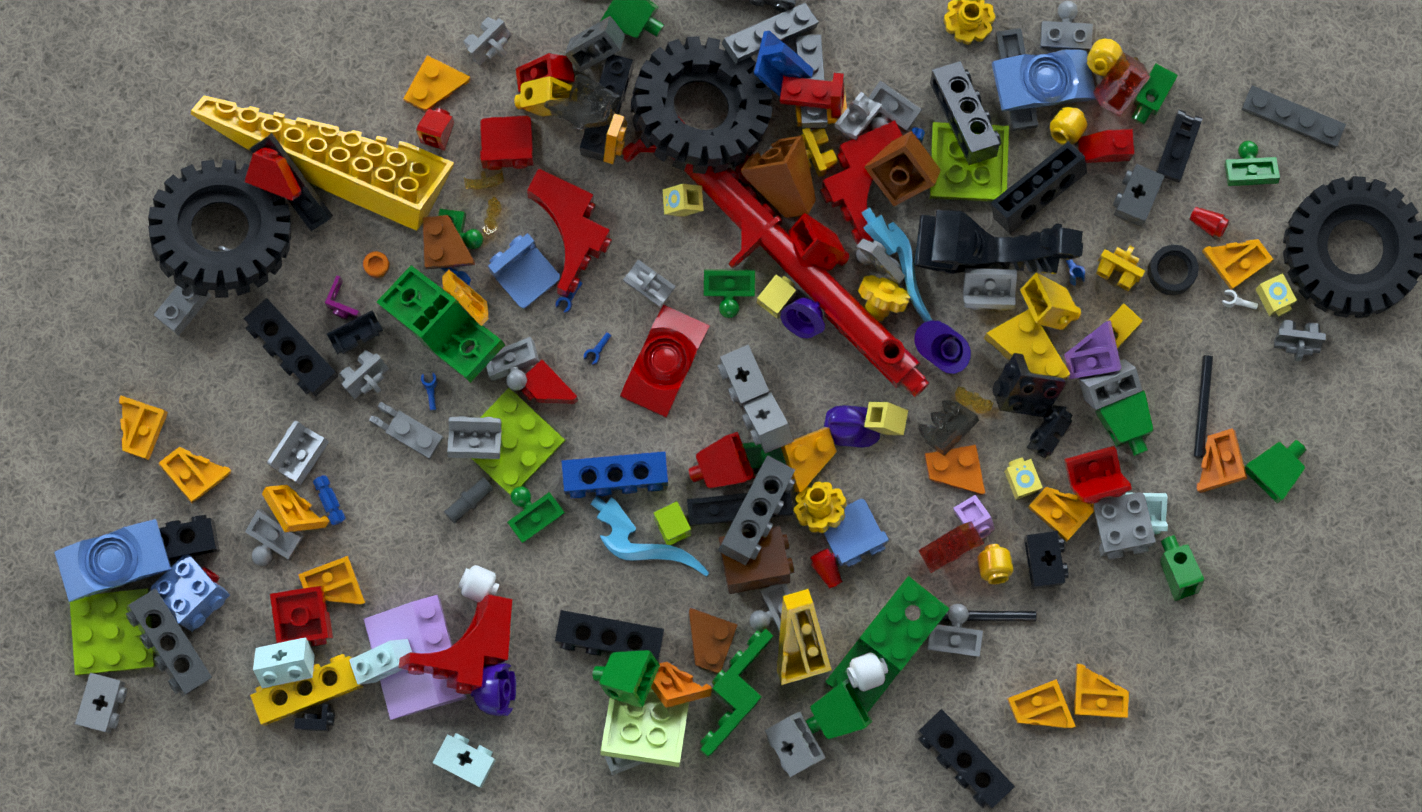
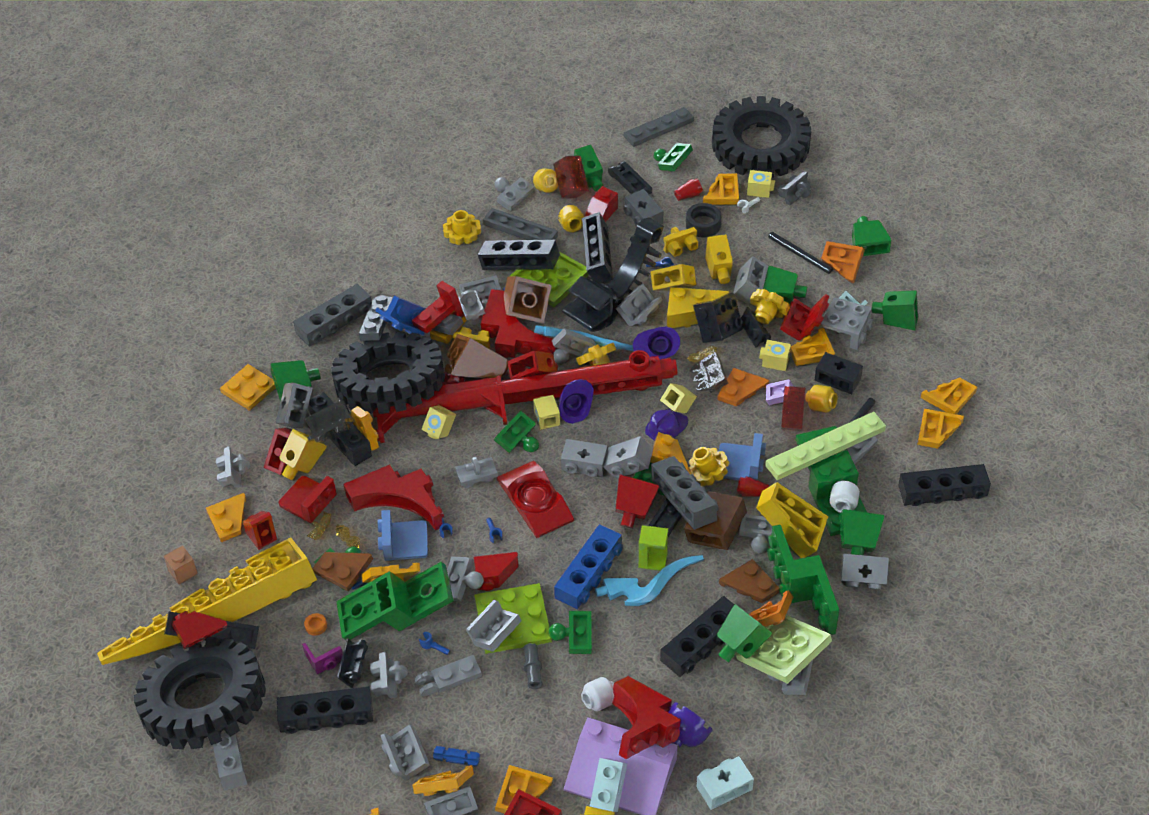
camera: 50 degrees left, 30 degrees down
(345, 89) = (180, 564): none -> nougat brick
(908, 617) = (825, 445): none -> yellowish green plate
(1043, 79) = (532, 213): medium blue slope -> none
(1081, 428) = (768, 305): none -> yellow plant
(1094, 354) = (726, 270): medium lavender wing -> none

